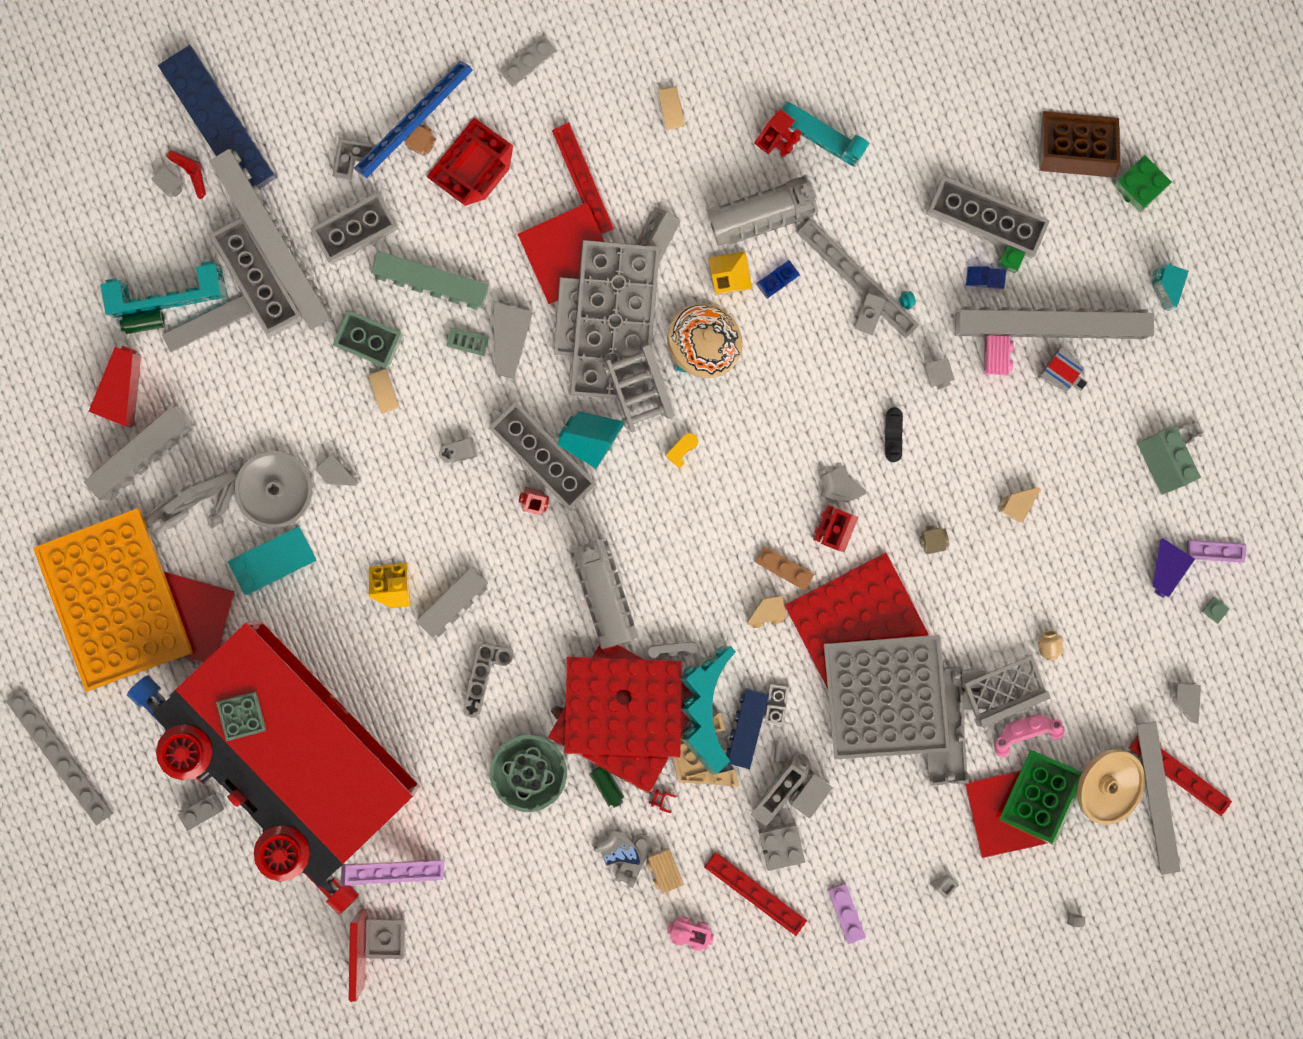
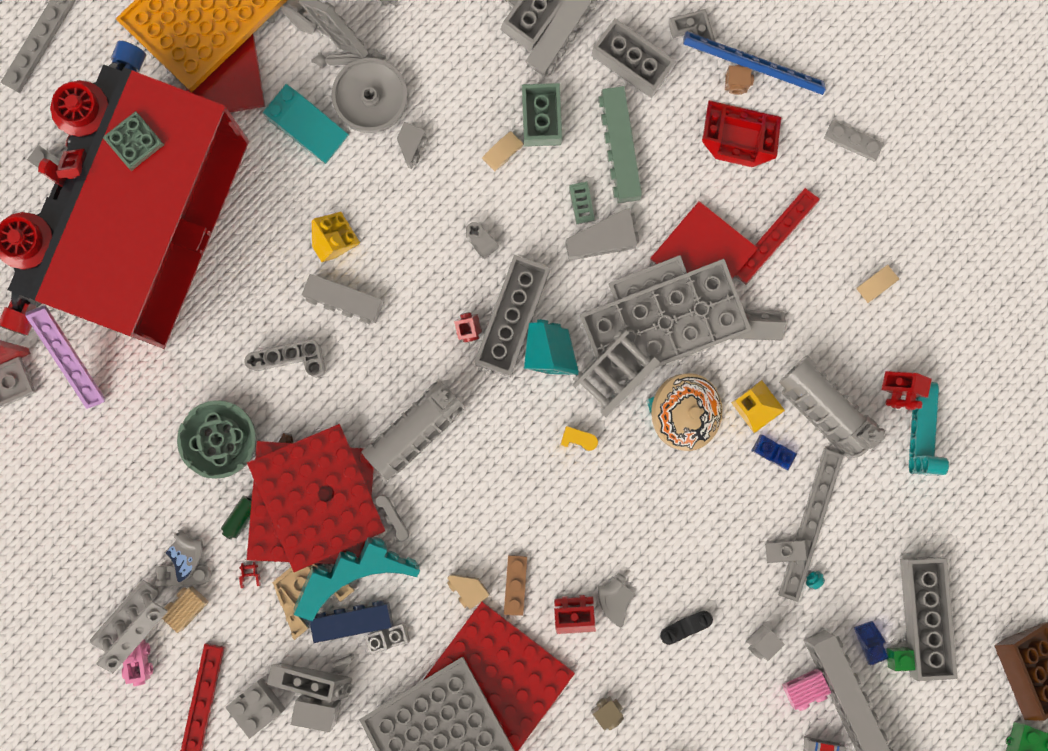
camera: 65 degrees right, 5 degrees down
(235, 779) = (71, 163): none -> red plate
(647, 928) = (128, 626): none -> light grey fence

